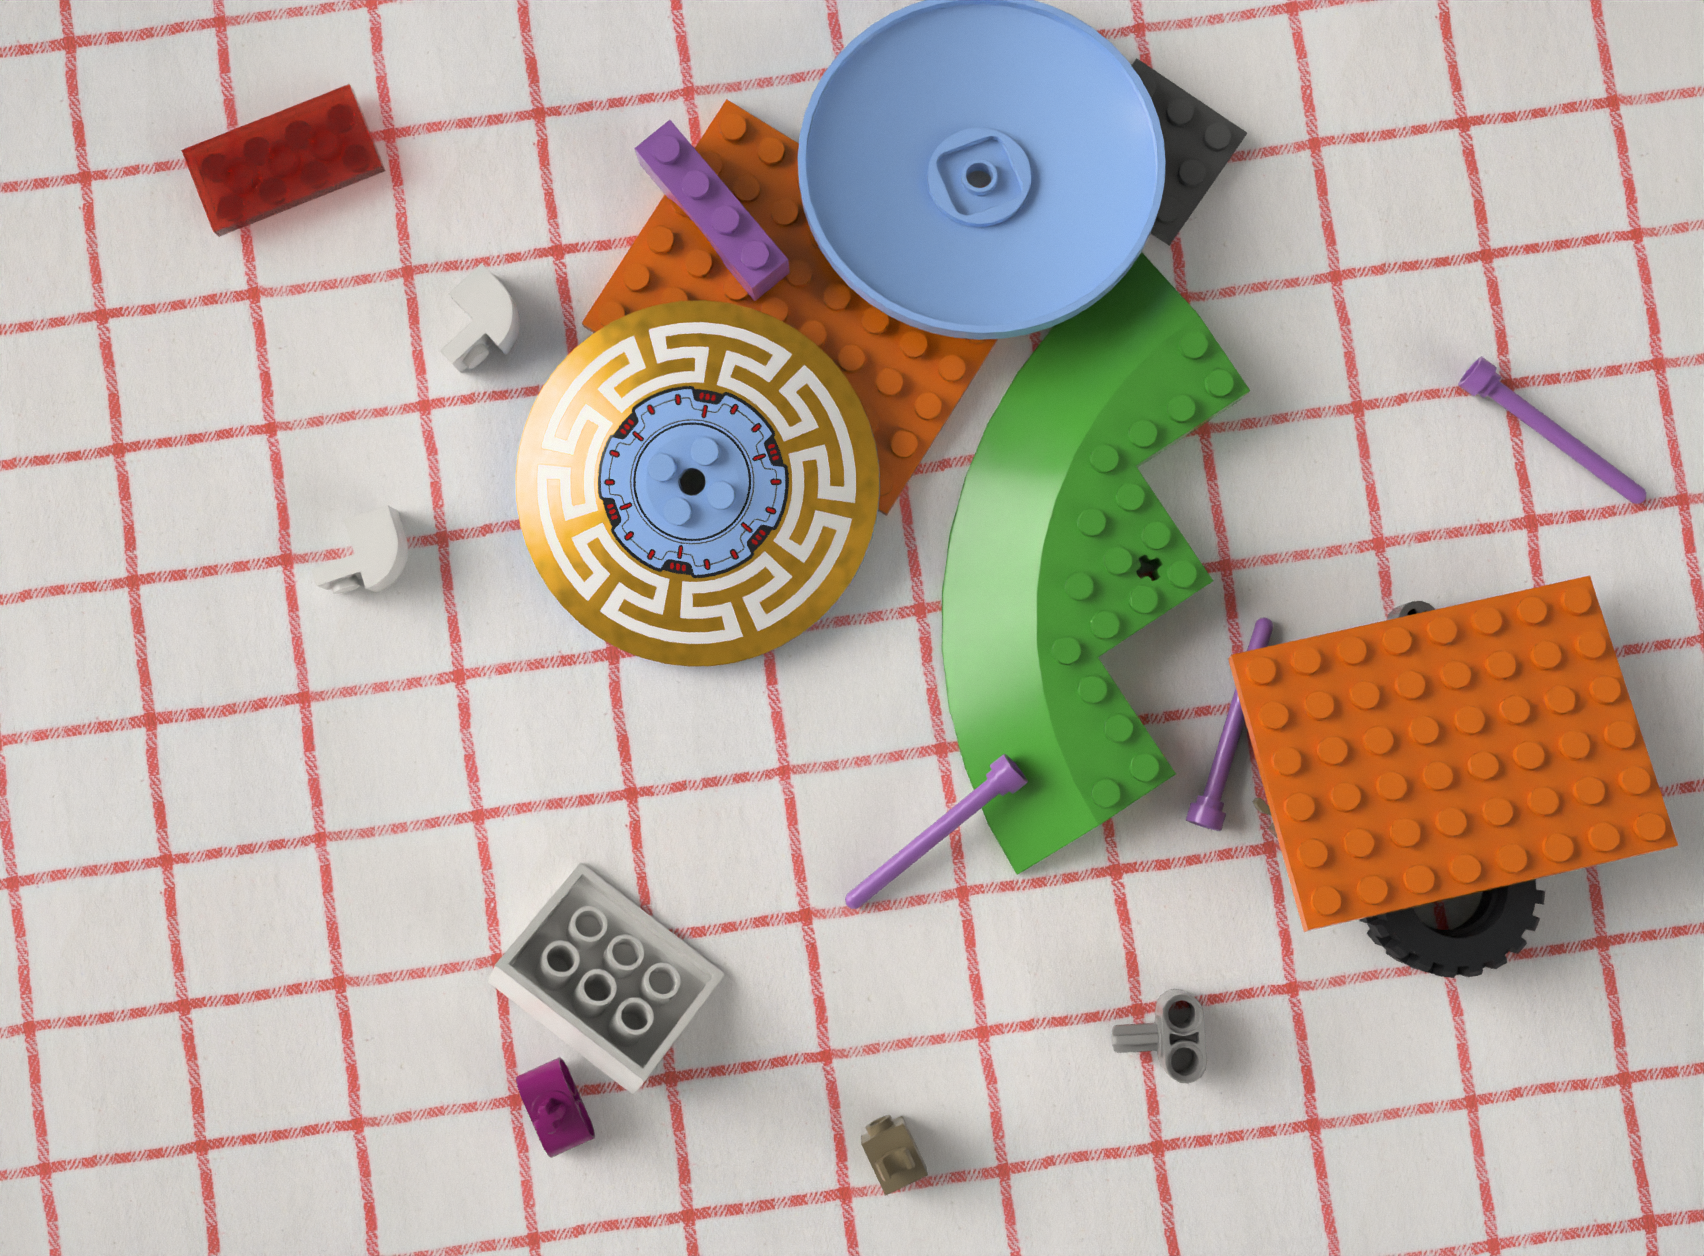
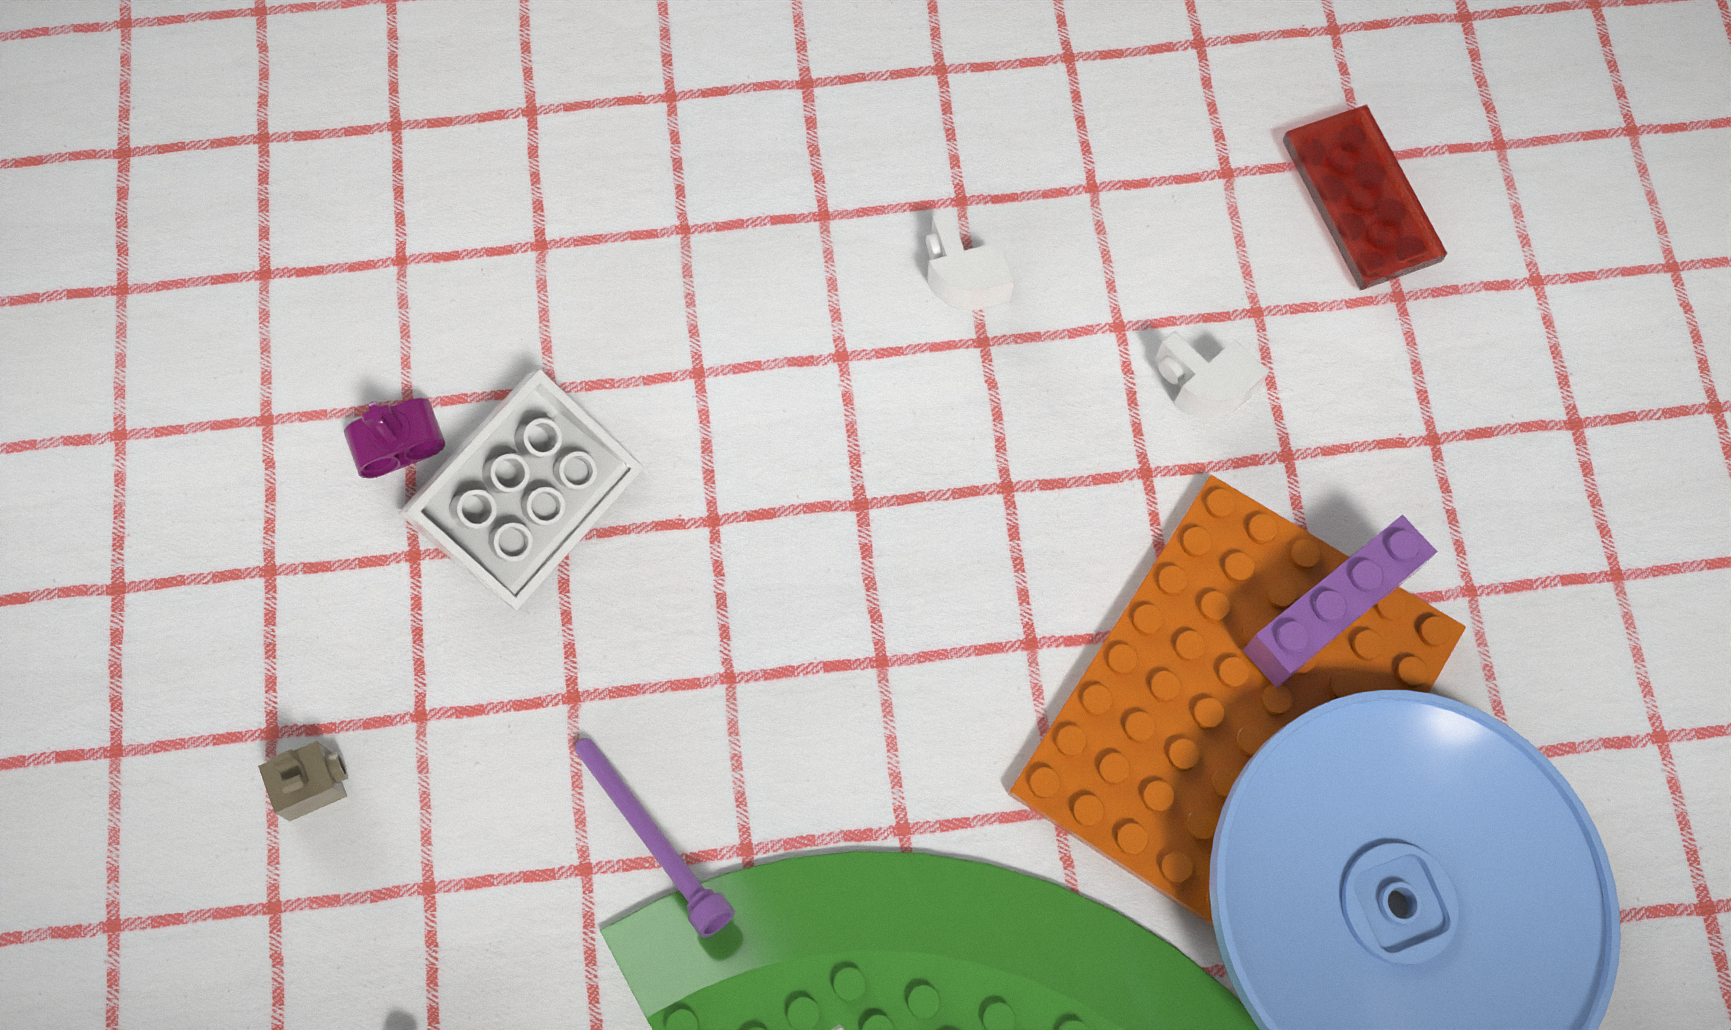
camera: 90 degrees right, 15 degrees down
(781, 502) = (1057, 671): dish -> none

